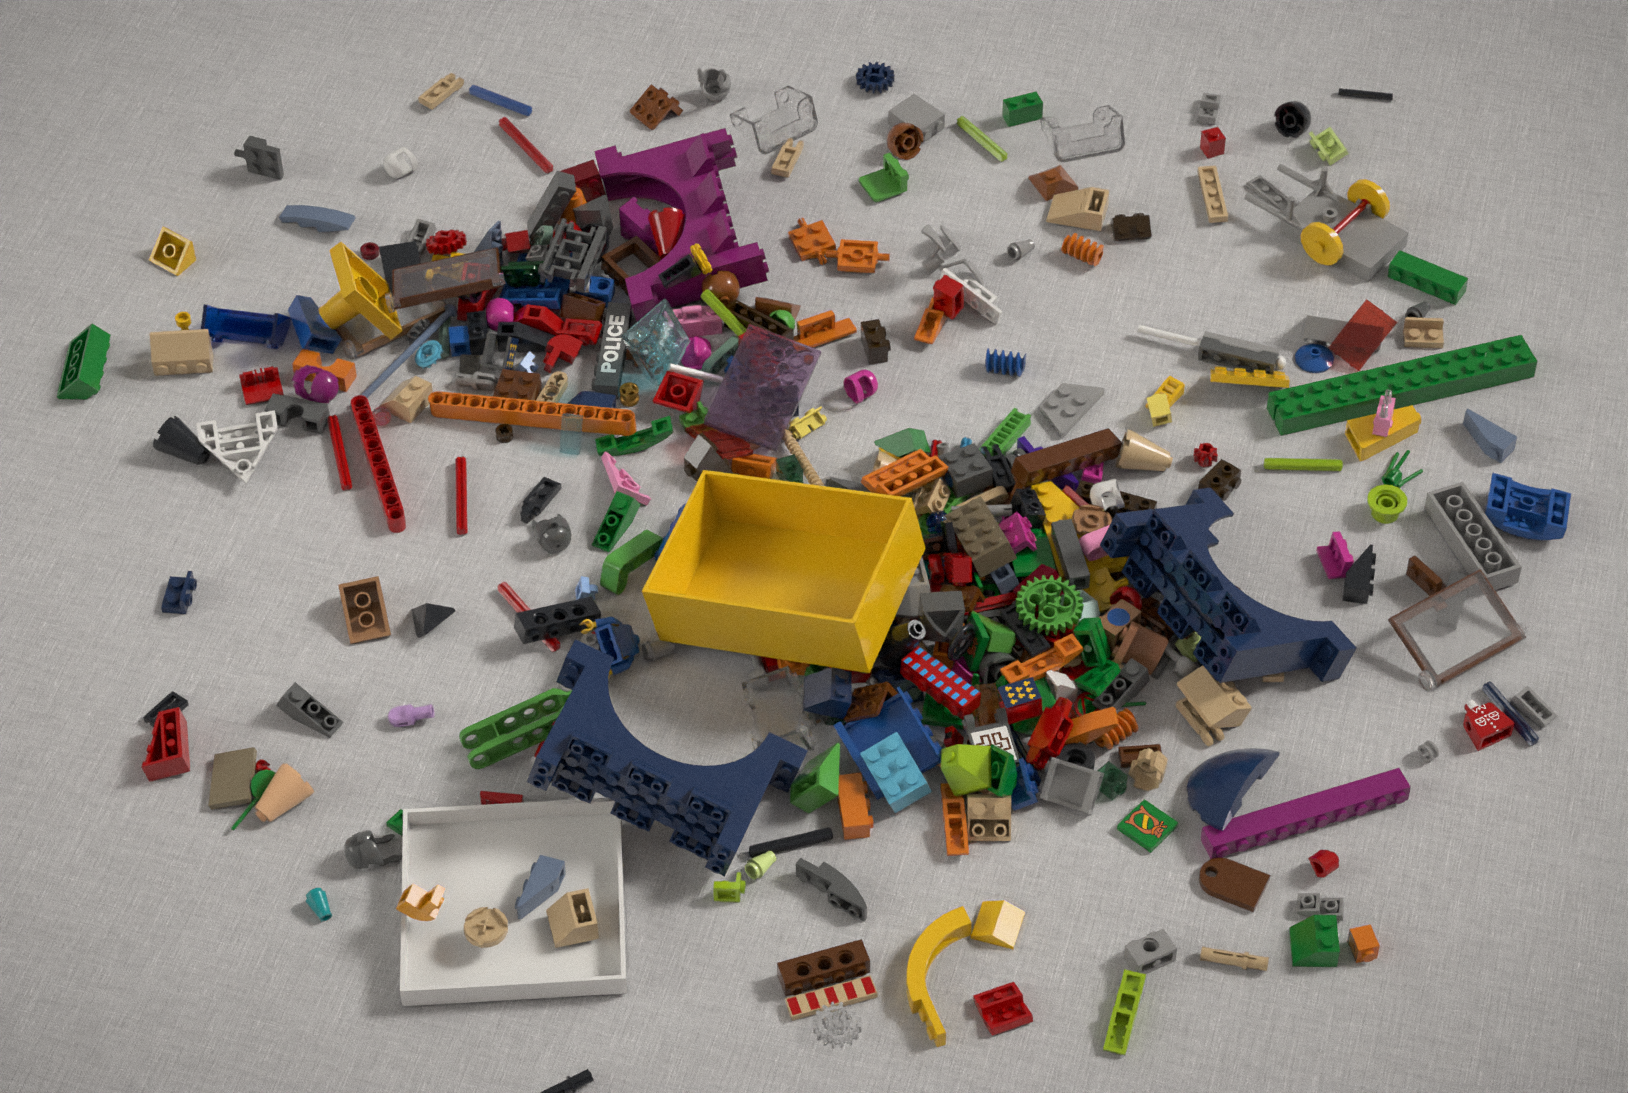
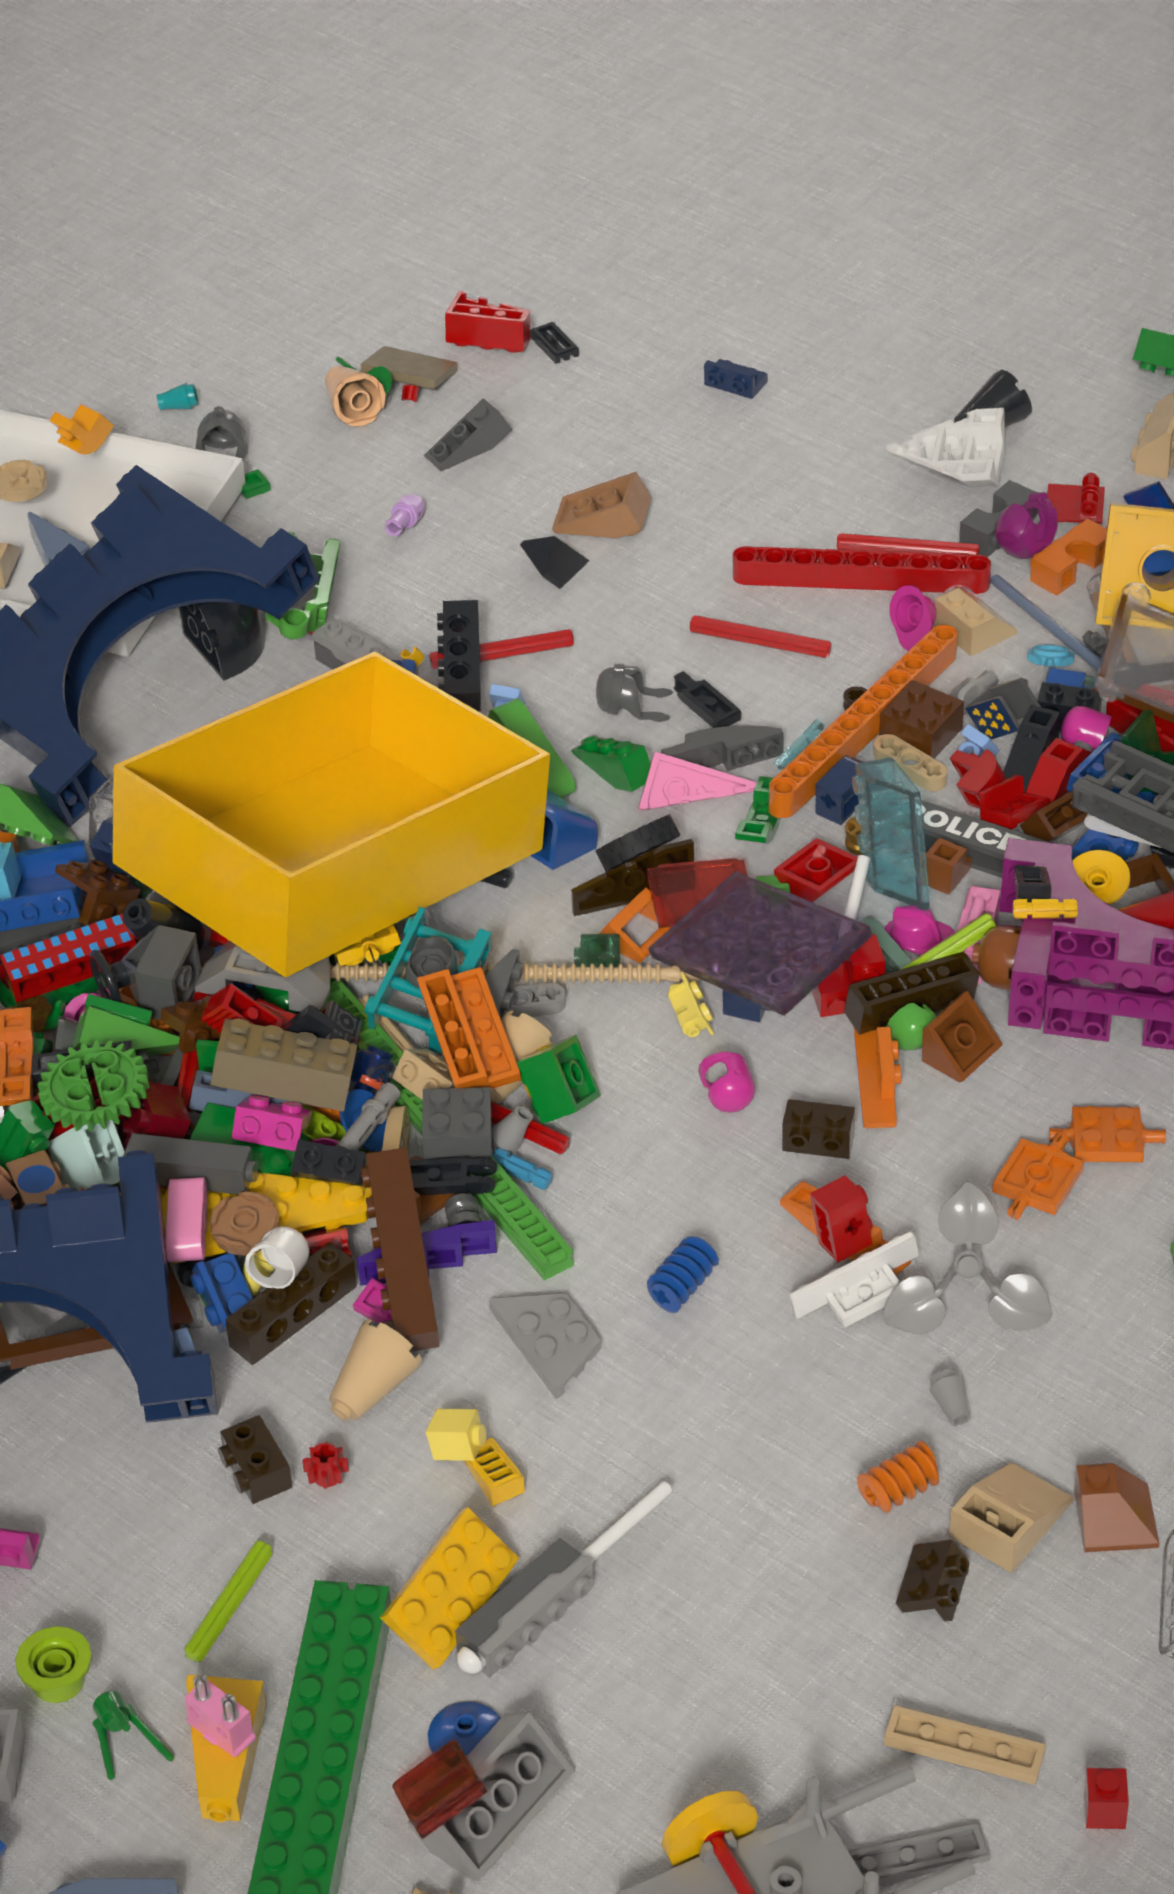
camera: 115 degrees right, 5 degrees down
(423, 421) = (911, 615): none -> dark pink piece
(584, 480) = (729, 746): none -> dark grey slope
(635, 264) = (1104, 868): none -> yellow dish
(683, 460) = (637, 842): none -> black tyre

